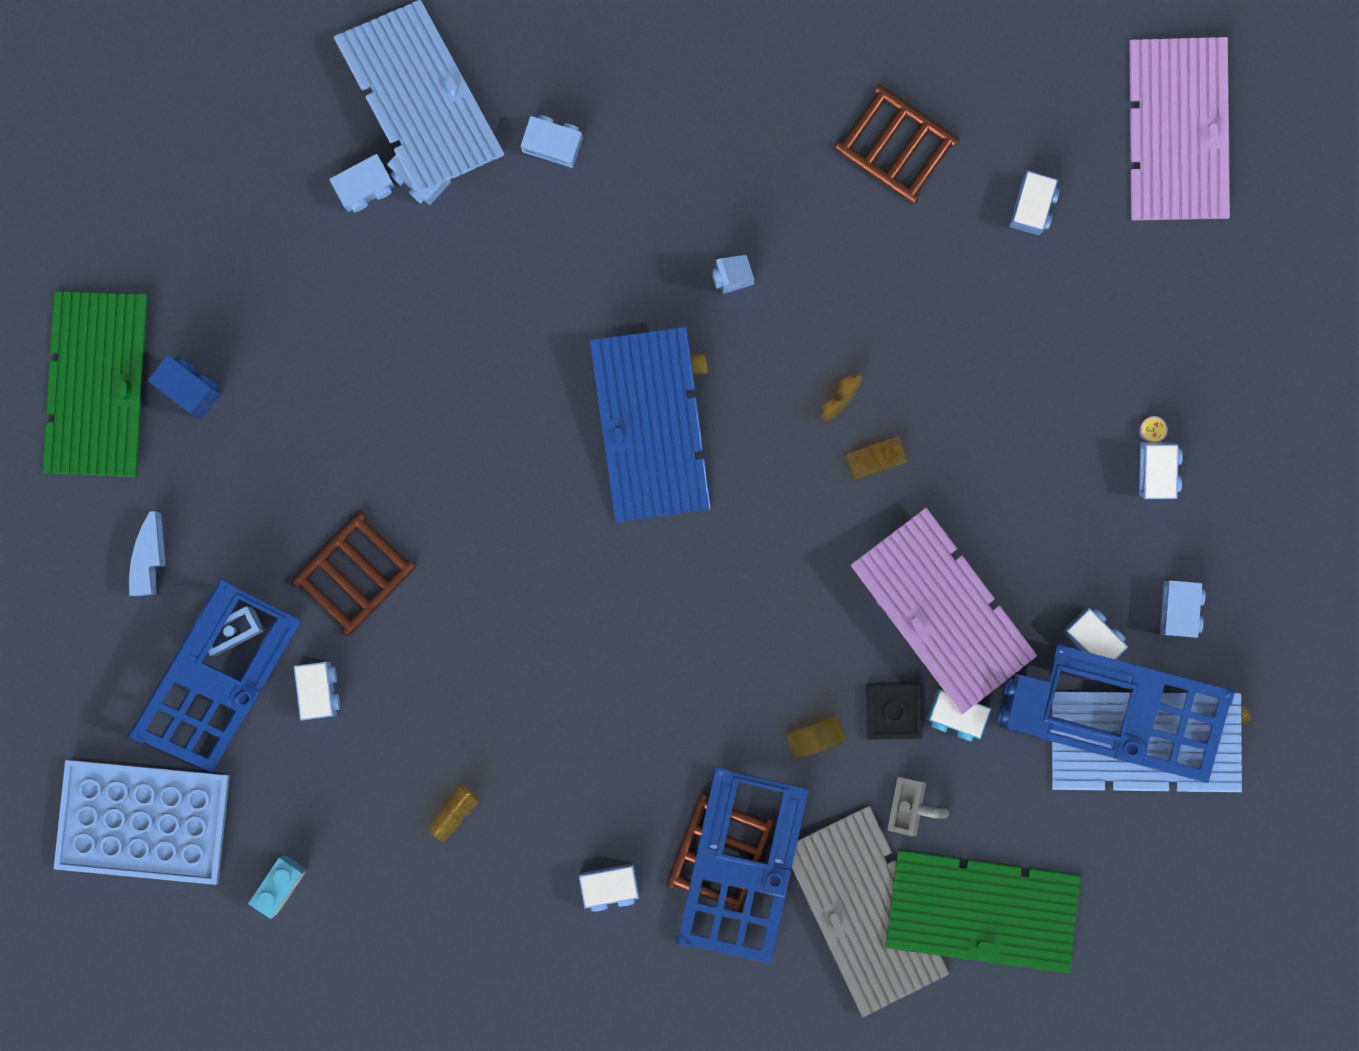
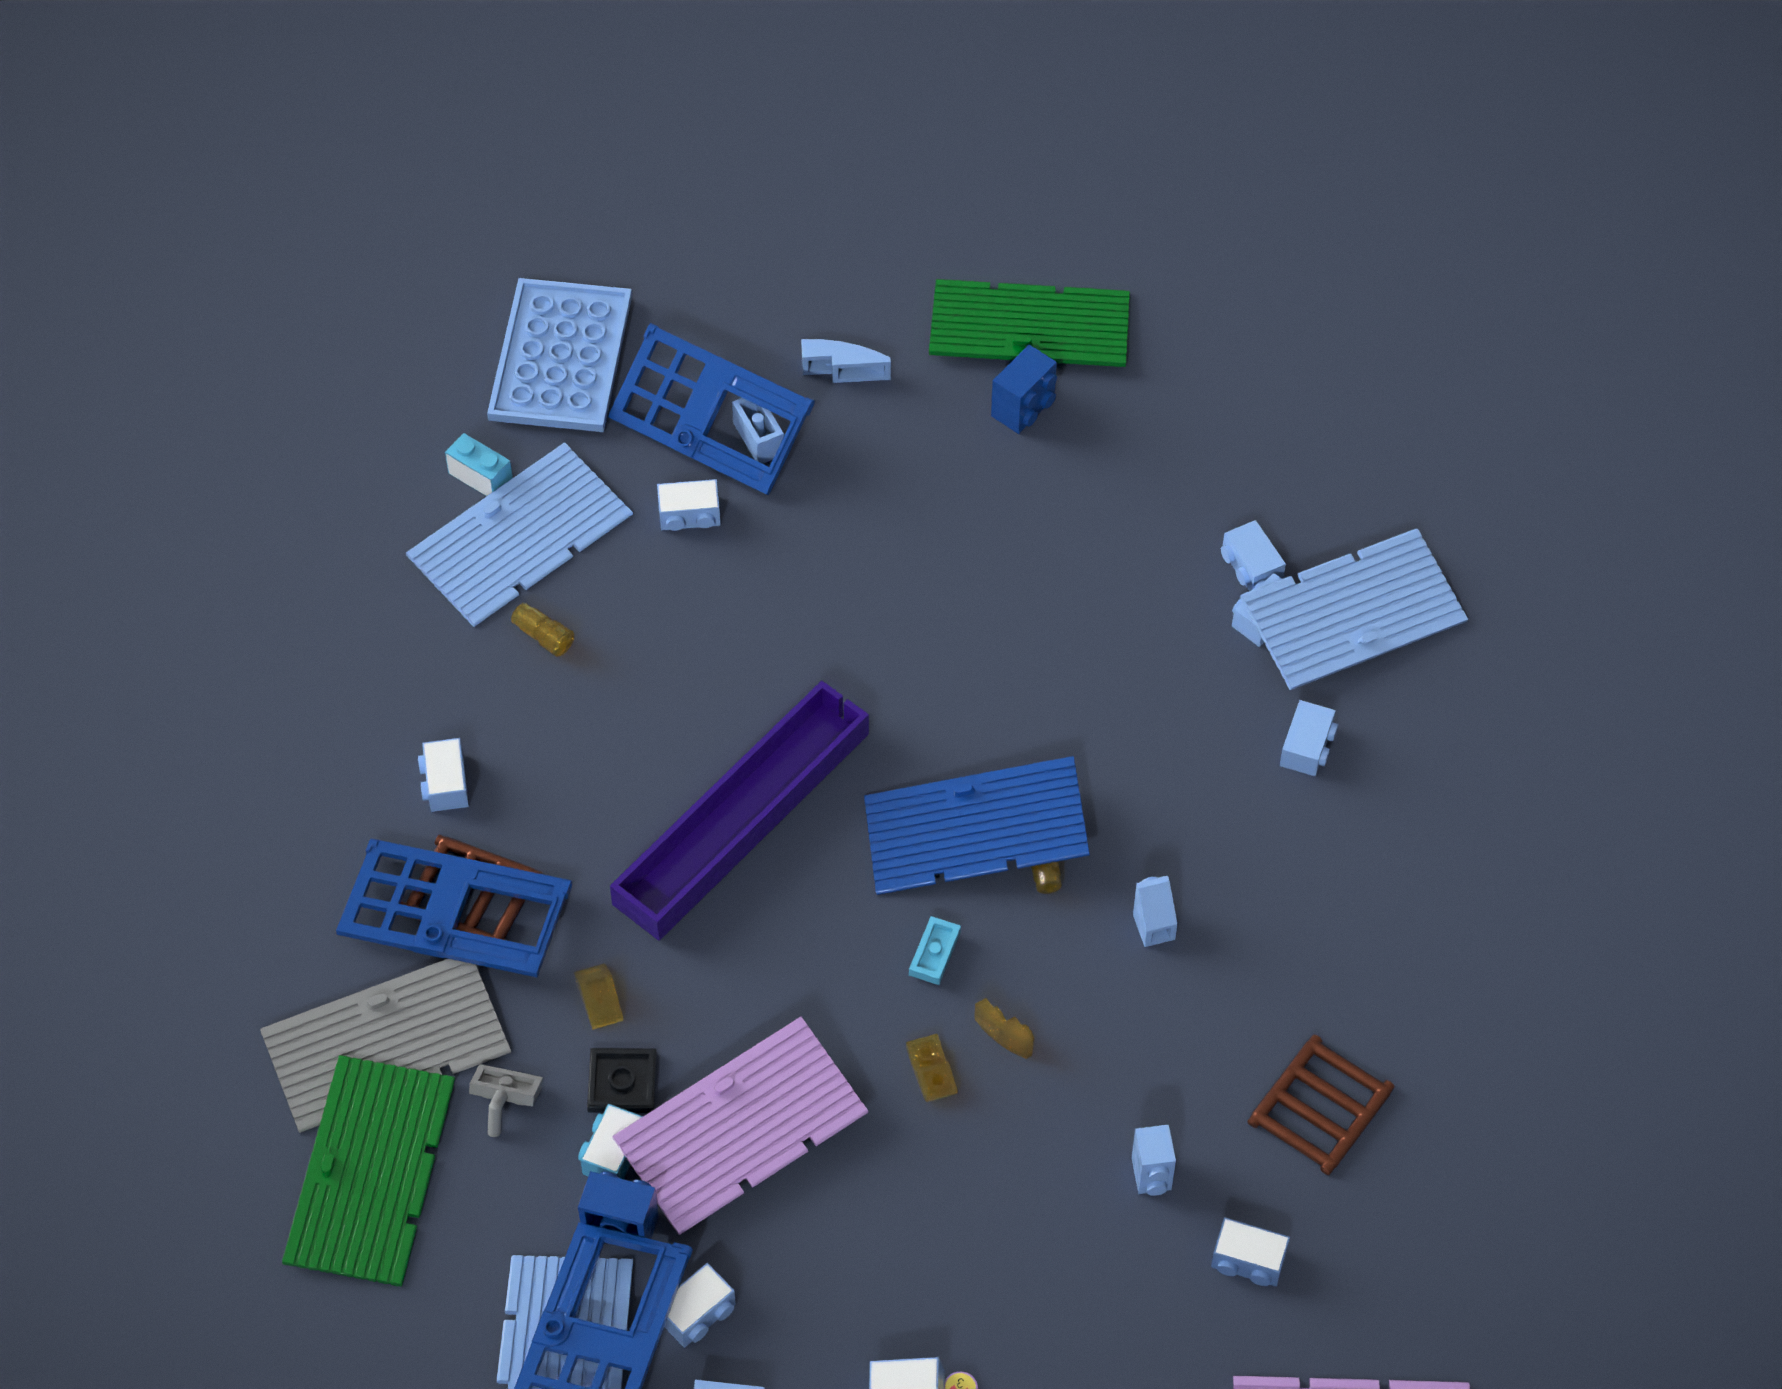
camera: 90 degrees right, 30 degrees down
(321, 560) = (801, 575): copper bar -> none
(347, 843) = (518, 534): none -> light blue door
(641, 625) = (739, 810): none -> dark purple piece
(768, 457) = (934, 950): none -> medium azure plate
(965, 276) = (1153, 1160): none -> light blue brick

